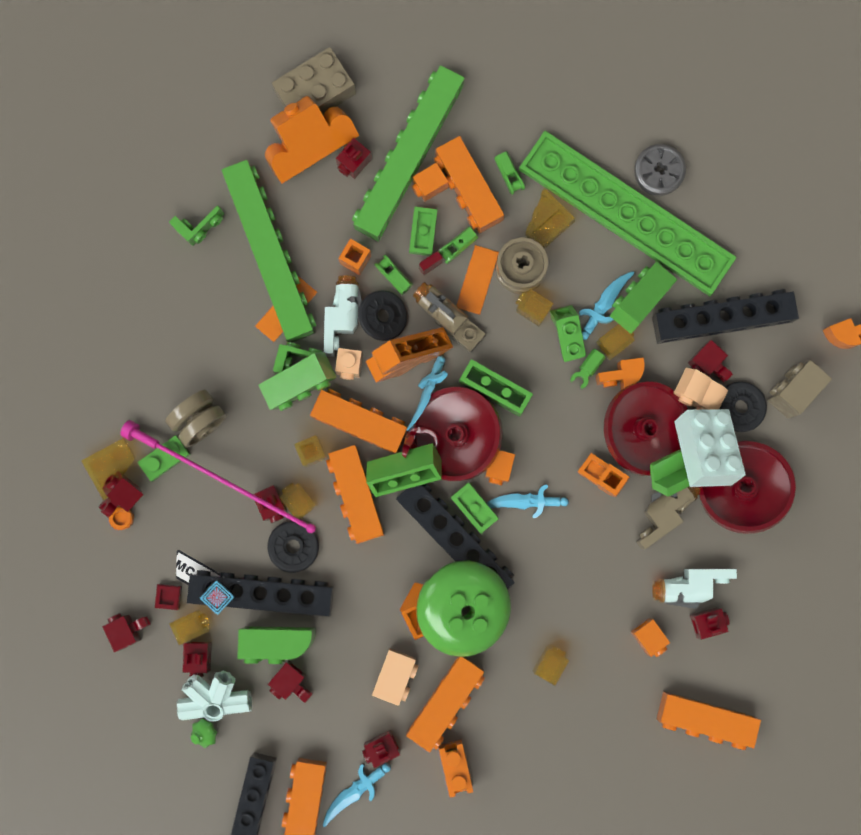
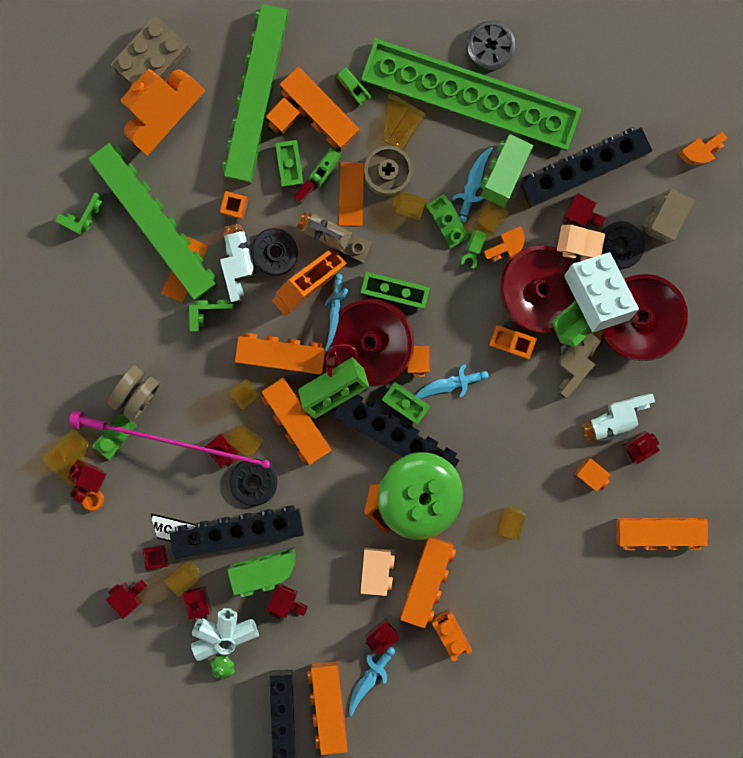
camera: 20 degrees left, 5 degrees up
(217, 597) = (200, 546): tile -> none
(298, 381) = (215, 335): bright green brick -> none
(348, 363) = (256, 305): light nougat brick -> none
(353, 159) = (206, 114): dark red brick -> none
(395, 277) = (276, 213): bright green bar -> none

